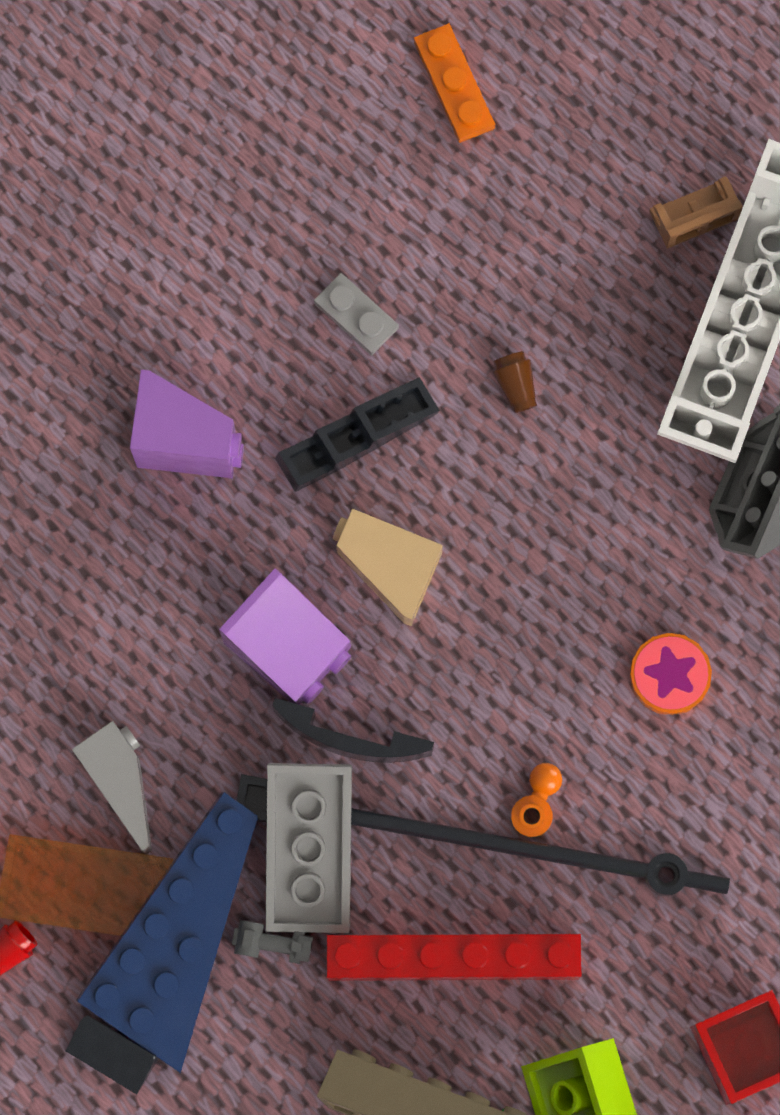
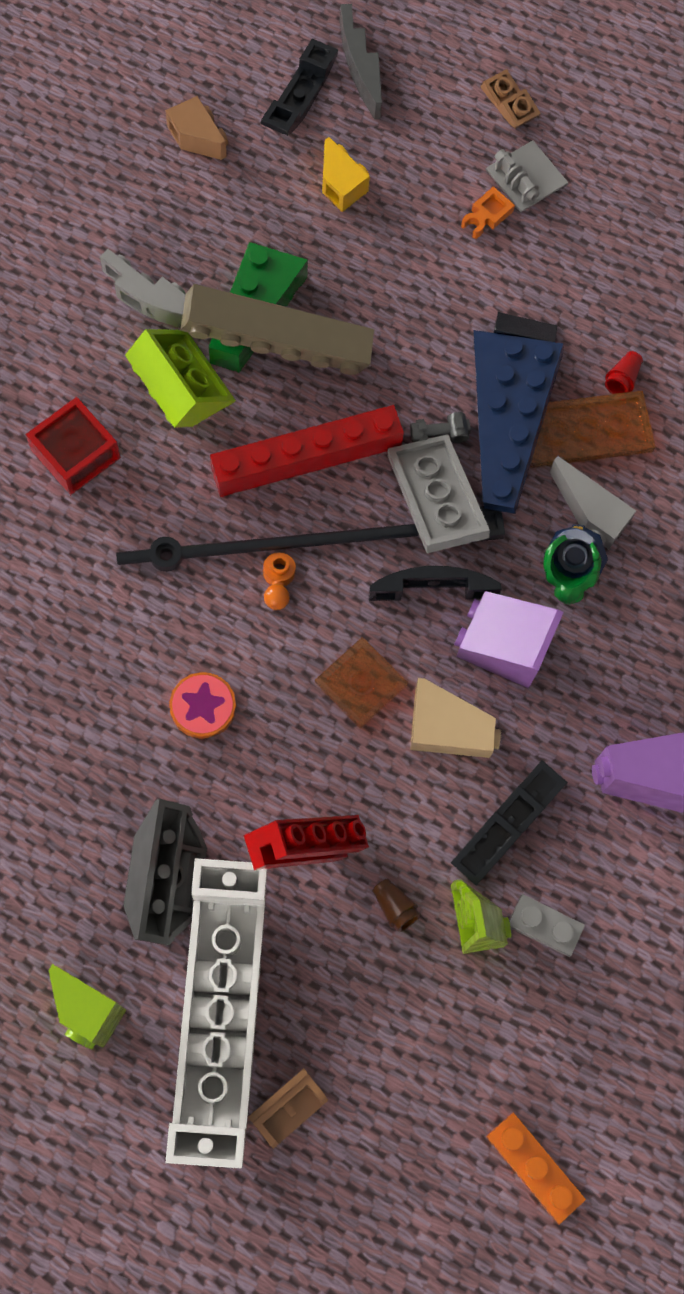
camera: 155 degrees right, 5 degrees down
(173, 708) = (574, 562): none -> piece
(431, 324) = (478, 920): none -> lime wedge
(475, 646) = (361, 682): none -> clear orange plate
(603, 453) = (305, 841): none -> red brick

